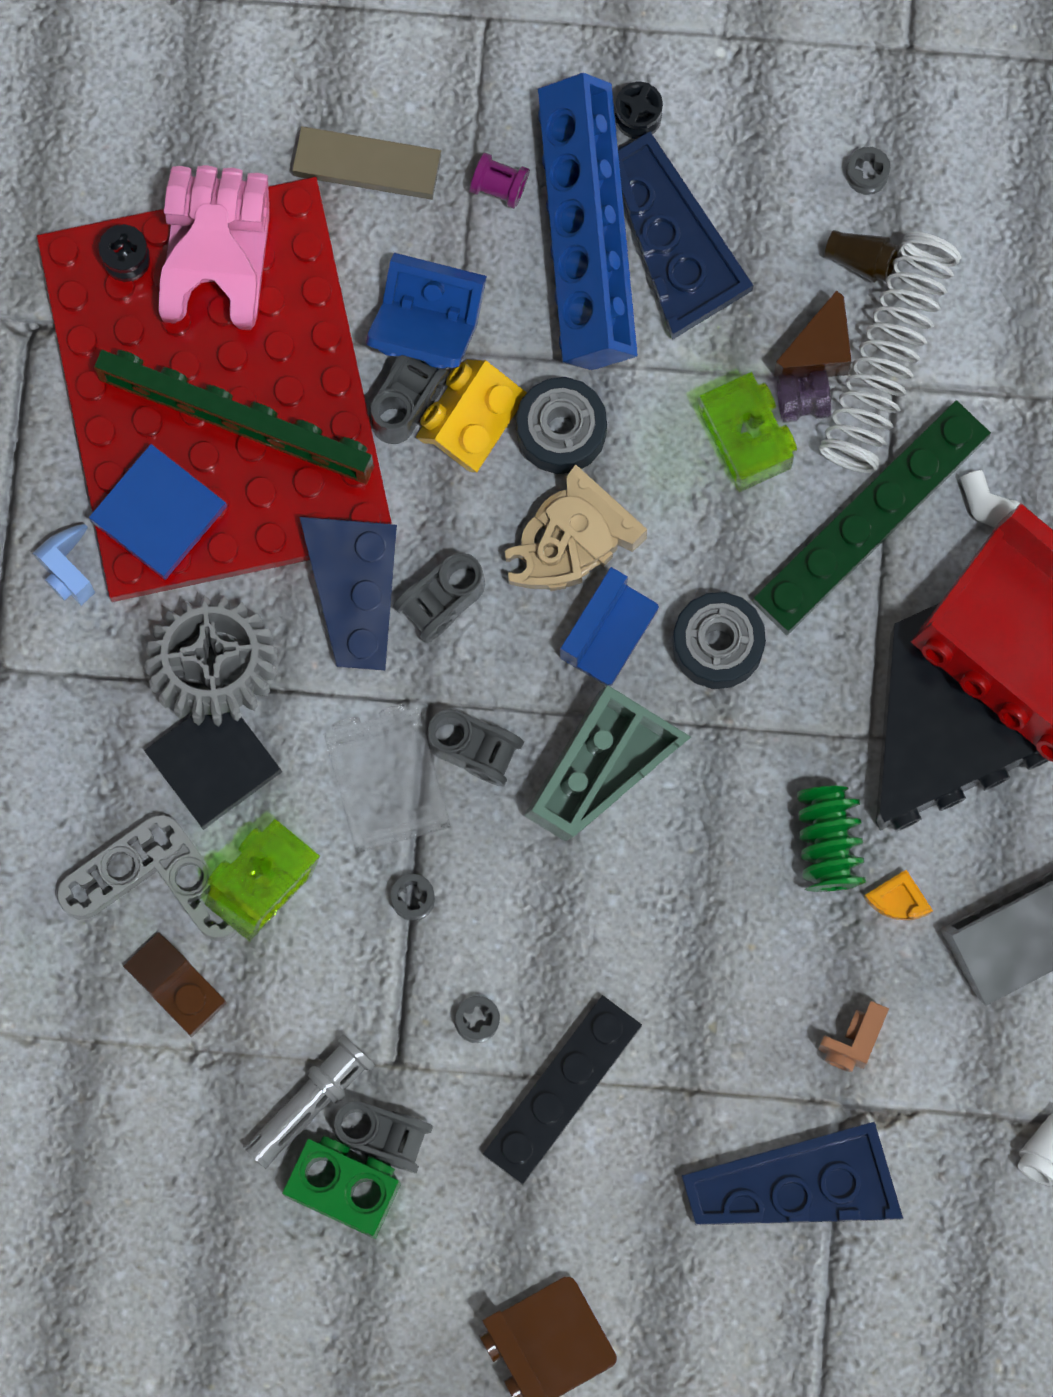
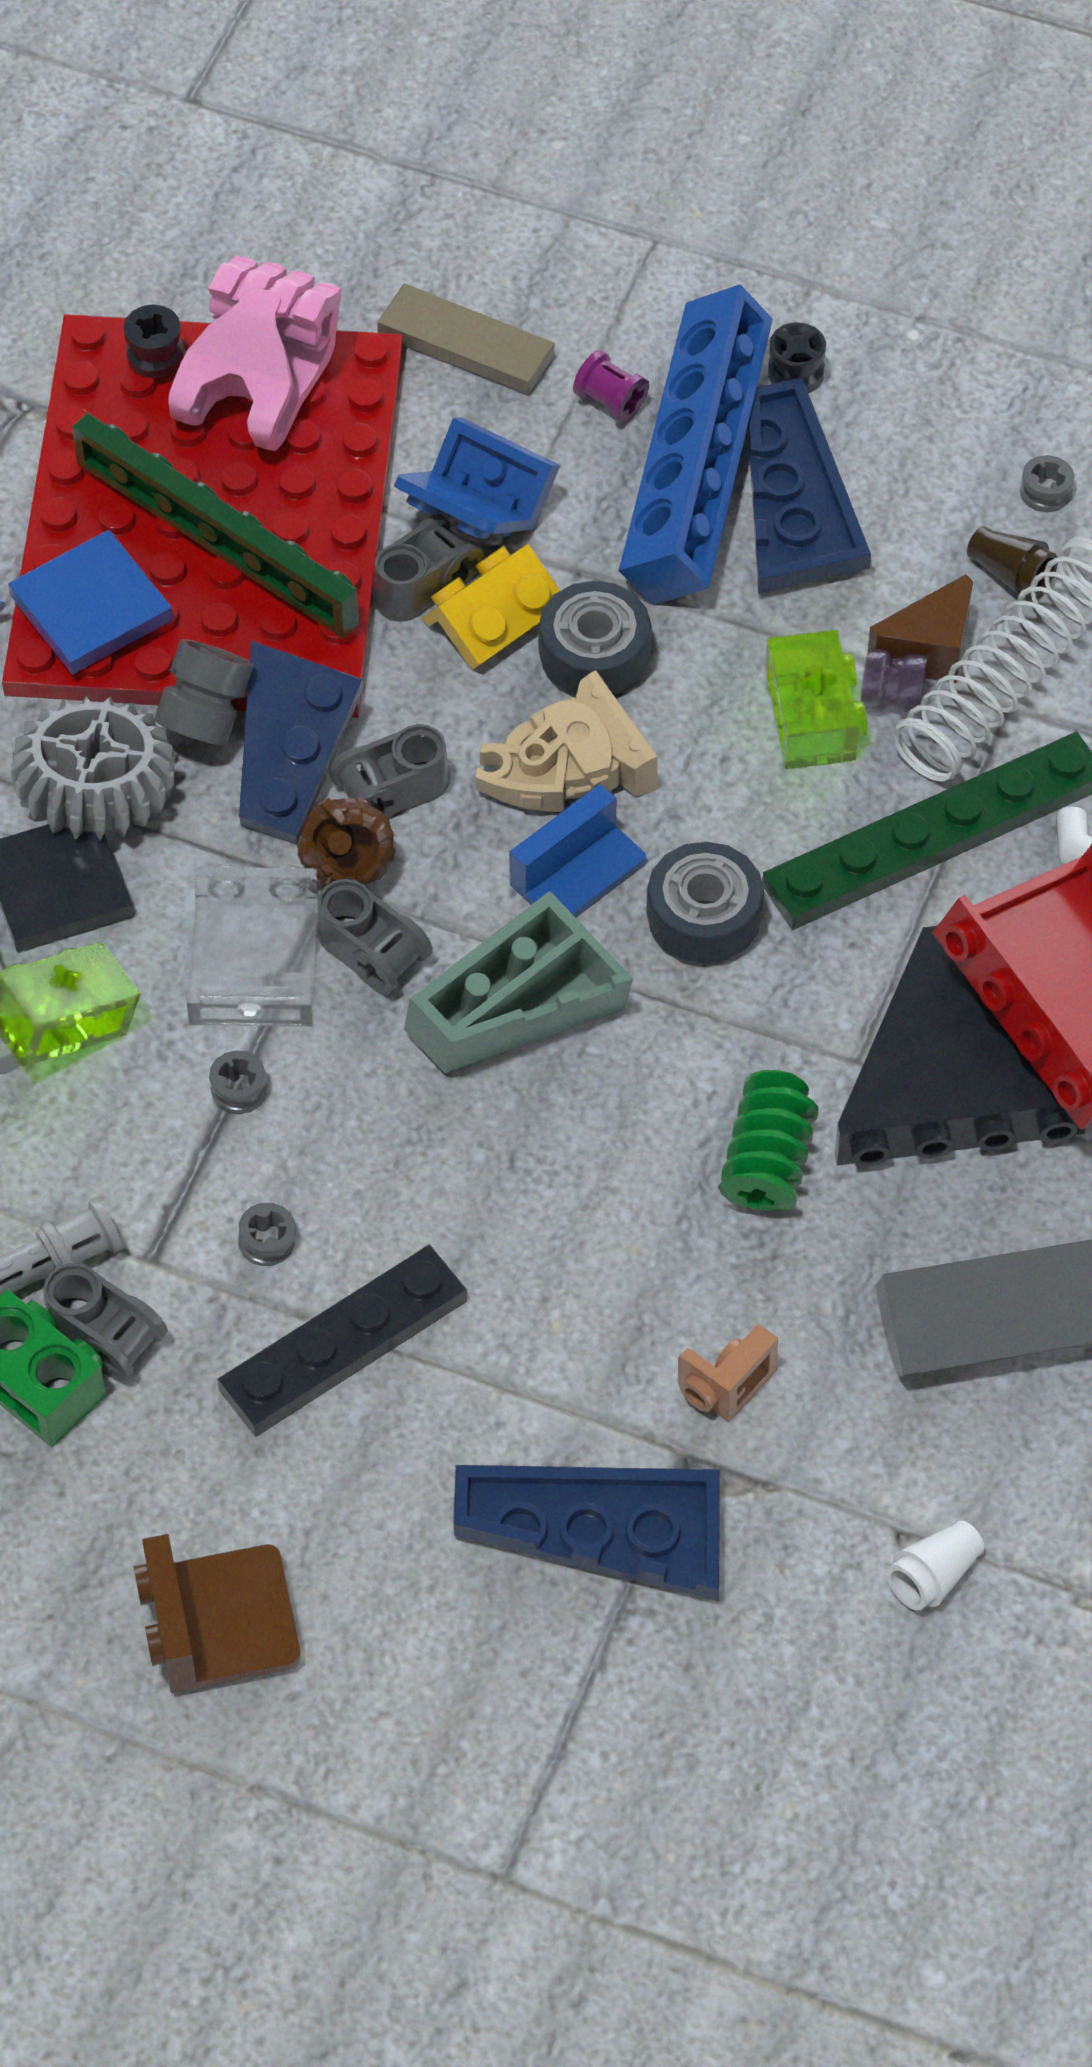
camera: 15 degrees right, 20 degrees down
(277, 577) = (203, 692): none -> dark grey wheel
(430, 674) = (346, 841): none -> reddish brown piece
(899, 899) = (834, 1241): light orange tile -> none

